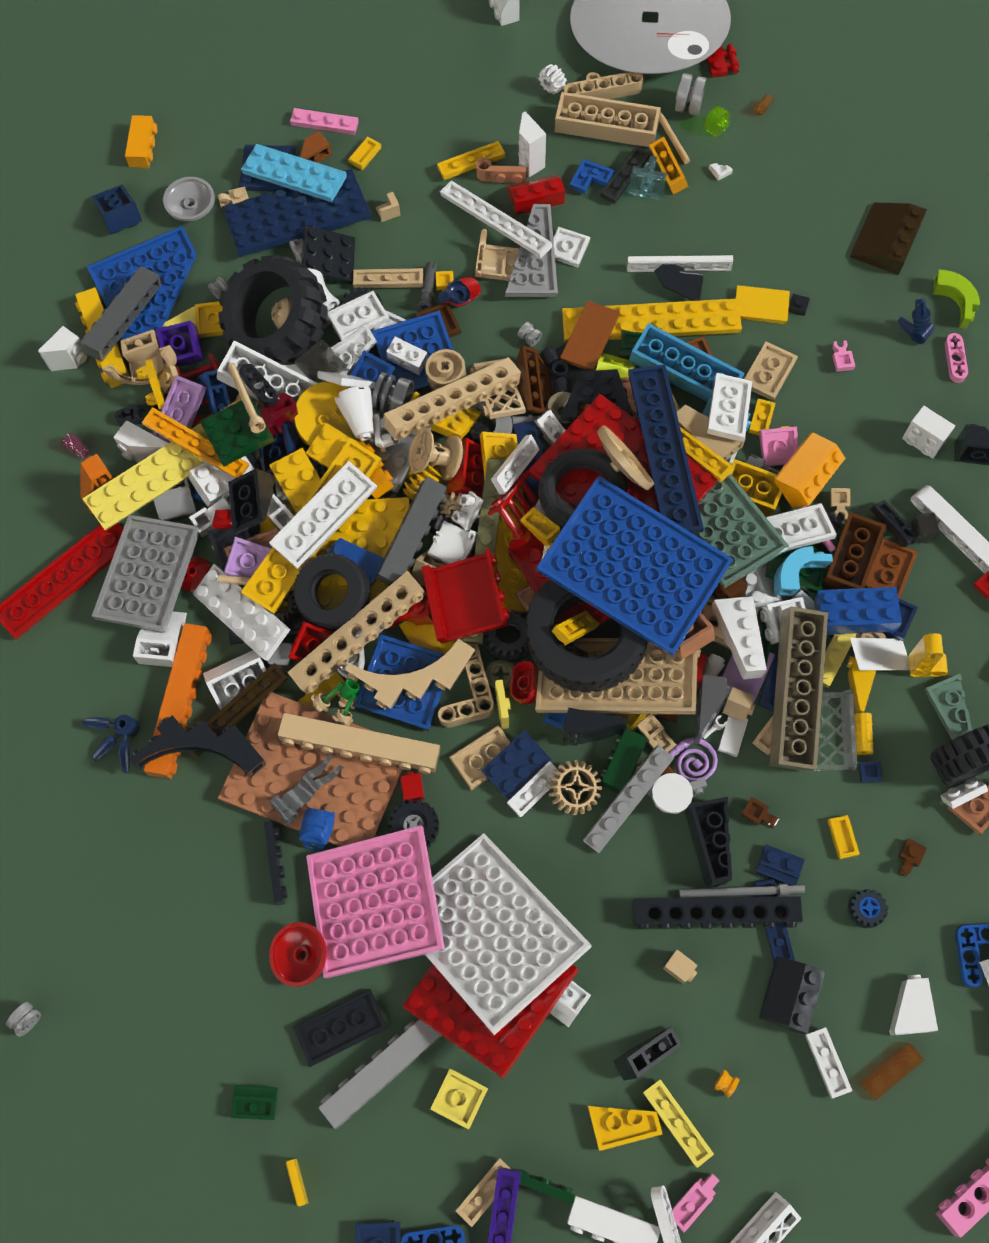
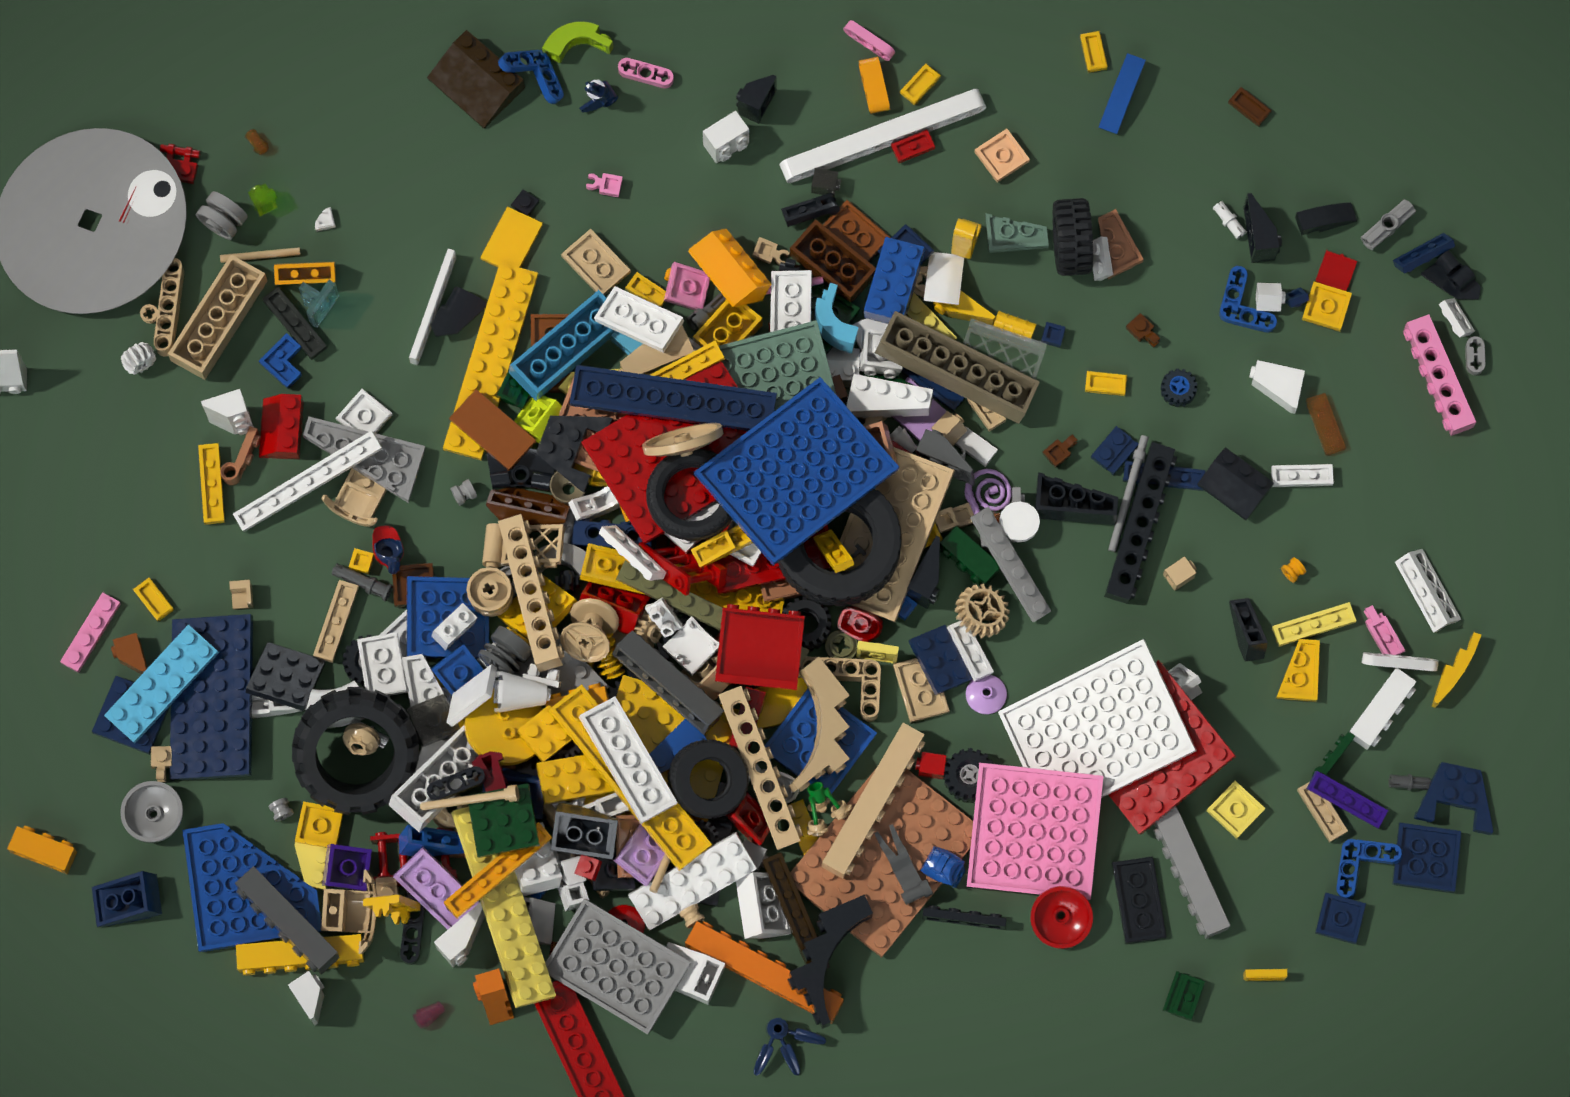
camera: 75 degrees left, 5 degrees up
(213, 624) = (691, 915): none -> tan wheel
(498, 828) = (986, 704): none -> lavender dish
(921, 274) = (551, 89): none -> blue beam

